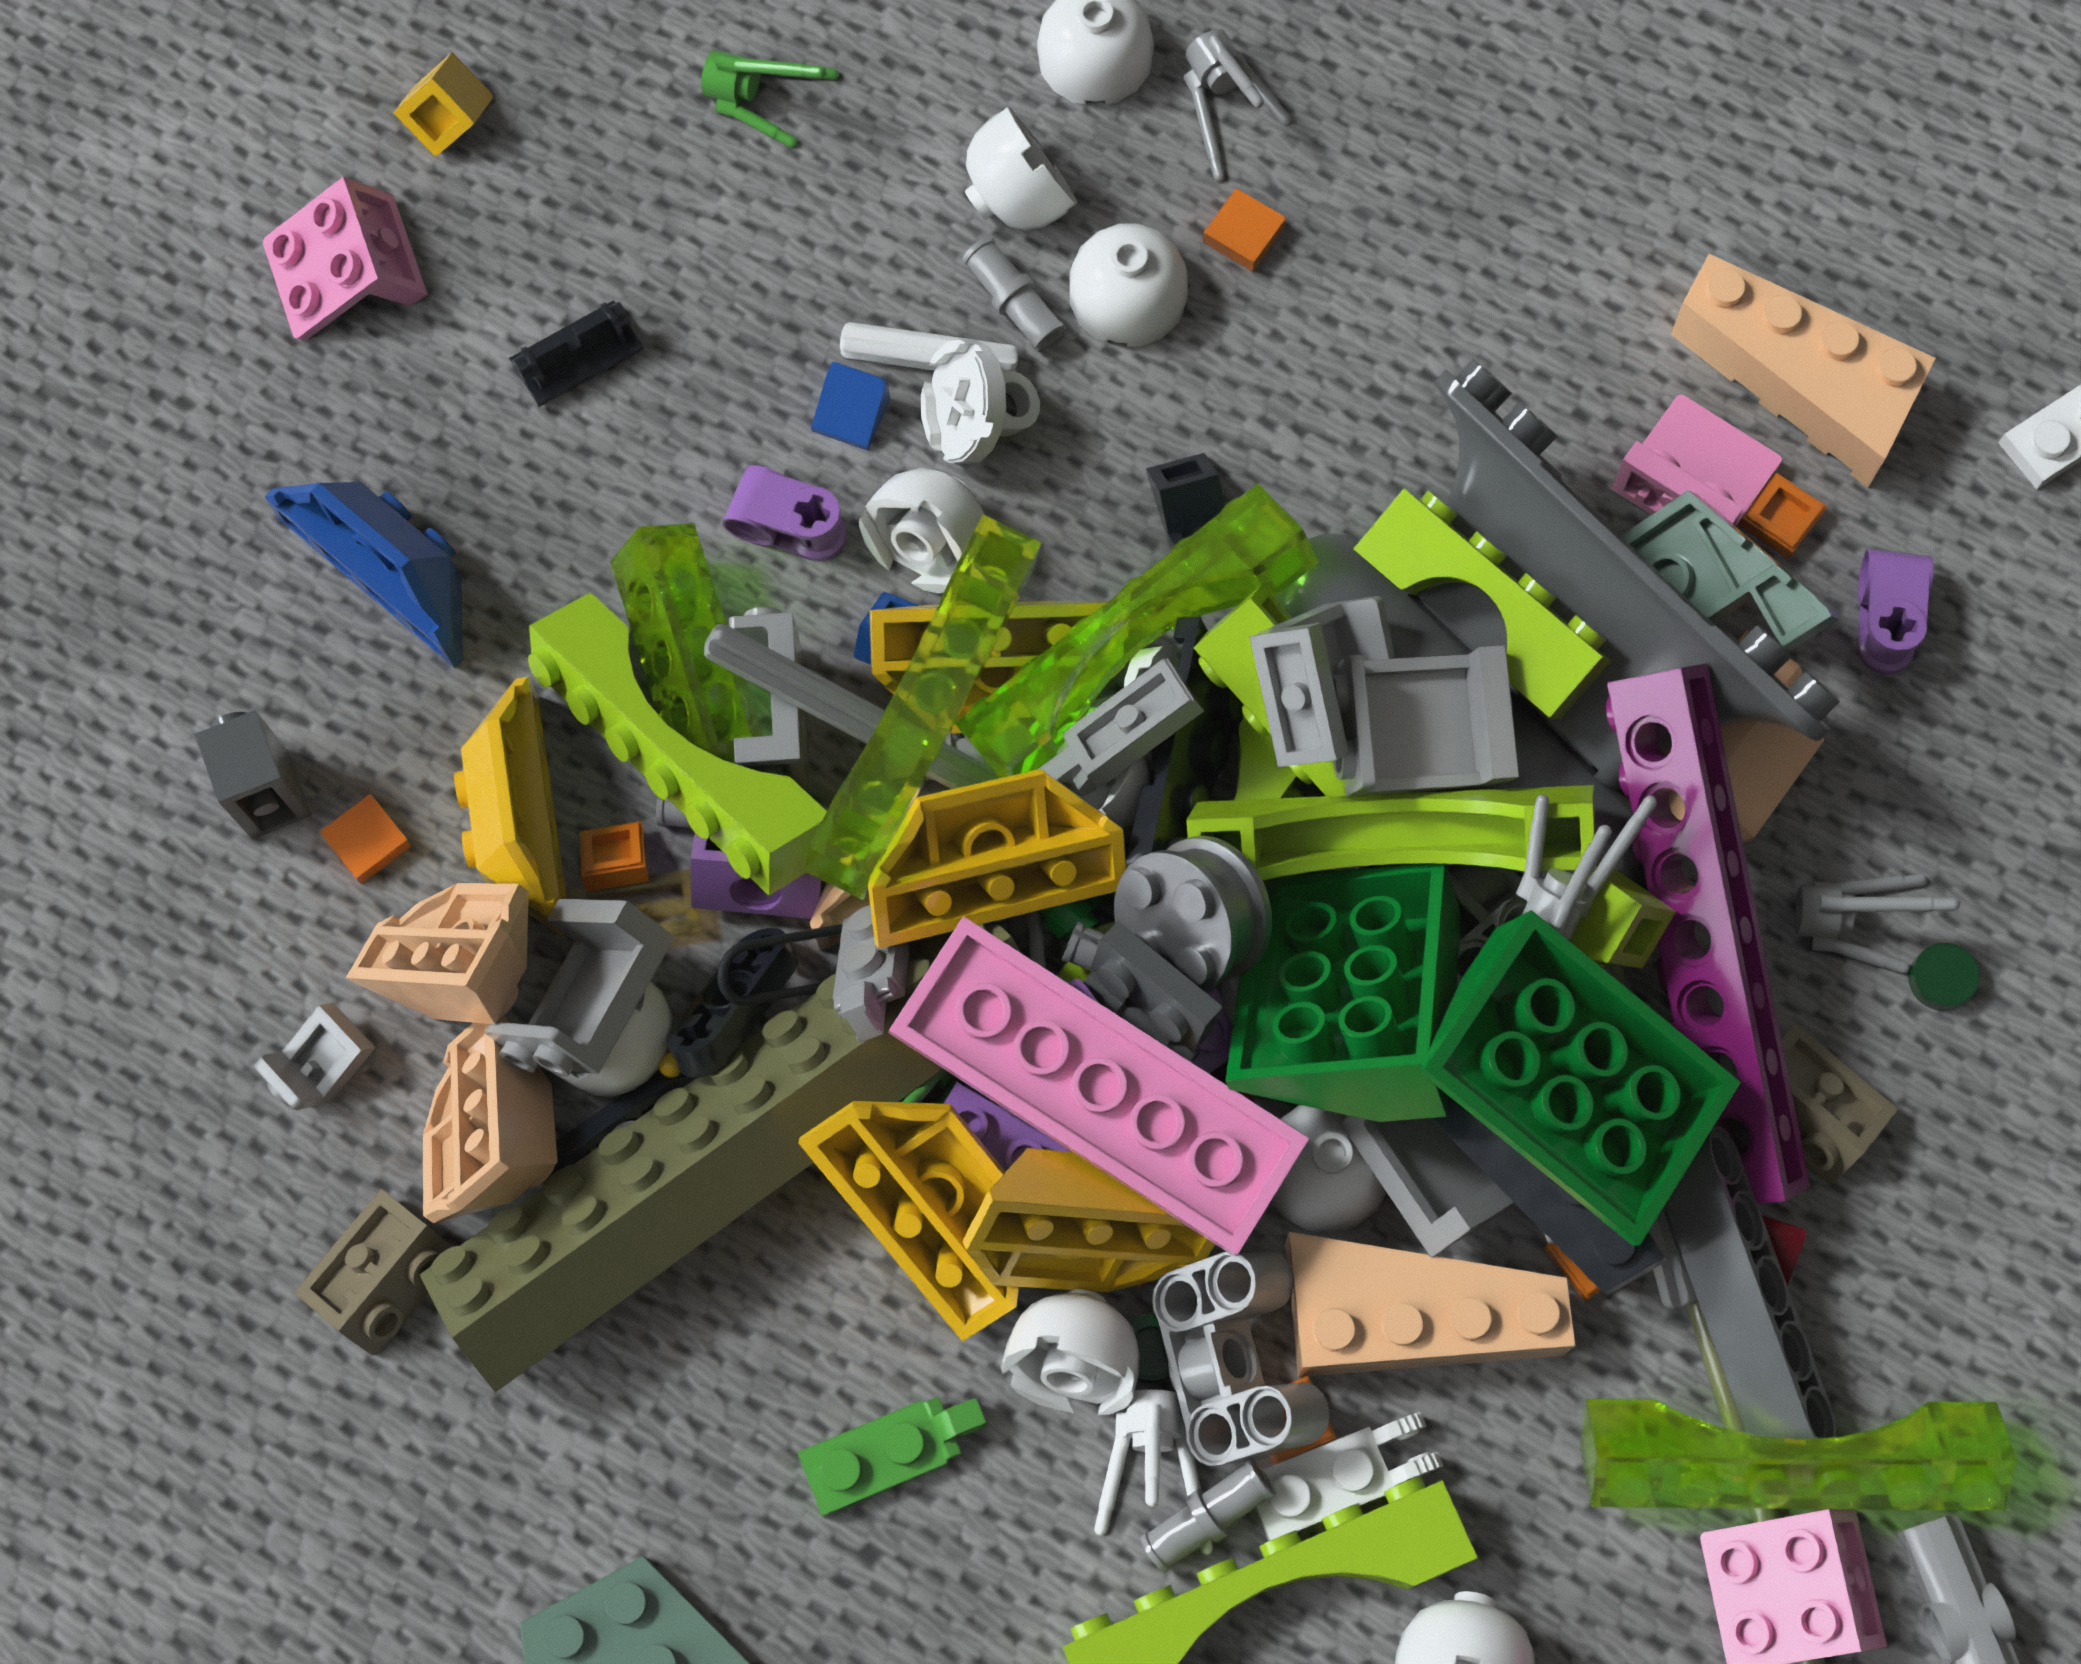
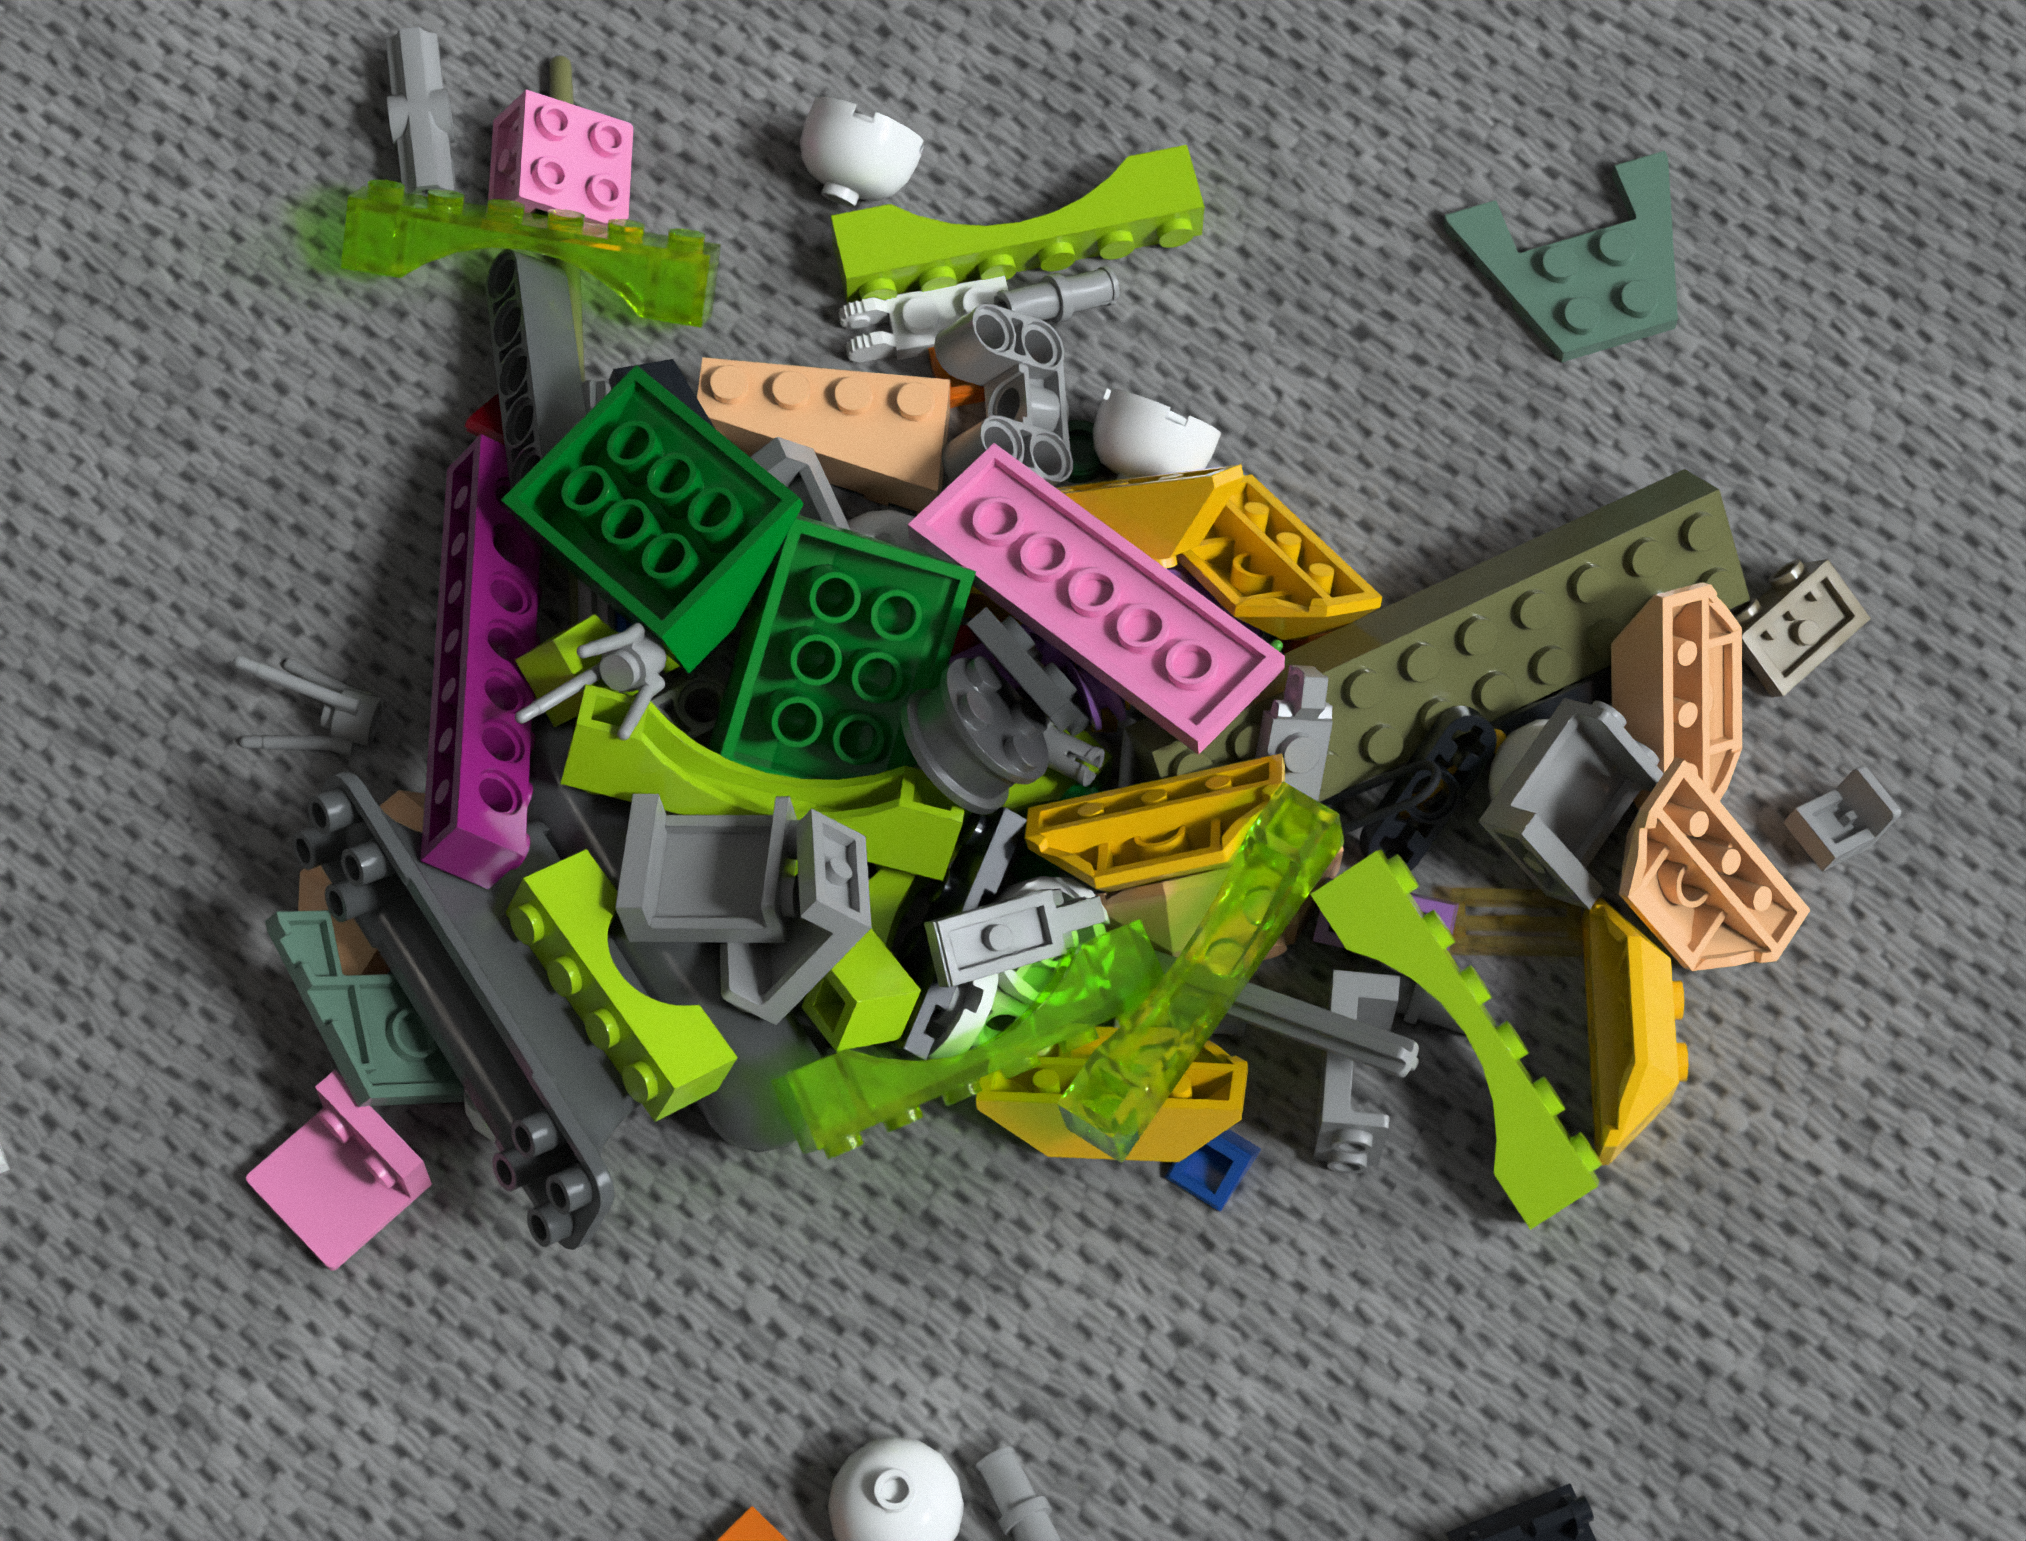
camera: 175 degrees left, 5 degrees down
(252, 773) = (1894, 1092): dark grey brick -> none
(365, 838) = (1784, 1040): orange tile -> none
(382, 555) = (1751, 1327): blue wedge -> none
(614, 856) = (1531, 973): orange tile -> none
(671, 615) = (1439, 1159): clear neon green brick -> none
(775, 510) = (1318, 1303): medium lavender piece -> none
(851, 405) = (1225, 1419): blue slope -> none
(887, 1452) = (1331, 405): bright green hinge -> none
(907, 347) = (1129, 1469): white axle -> none
(918, 519) = (1160, 1249): white cylinder -> none
(967, 402) = (1099, 1375): white tile -> none
(1153, 1423) = (1092, 373): white plant -> none
(1186, 495) = (877, 1223): black slope -> none
(1782, 515) = (260, 1121): orange tile -> none
(1804, 362) = (180, 1258): light nougat wedge -> none
(1833, 1106) = (402, 543): dark tan bracket -> none
(1894, 601) = (182, 1007): medium lavender piece -> none
(1944, 976) = (258, 639): dark green tile -> none

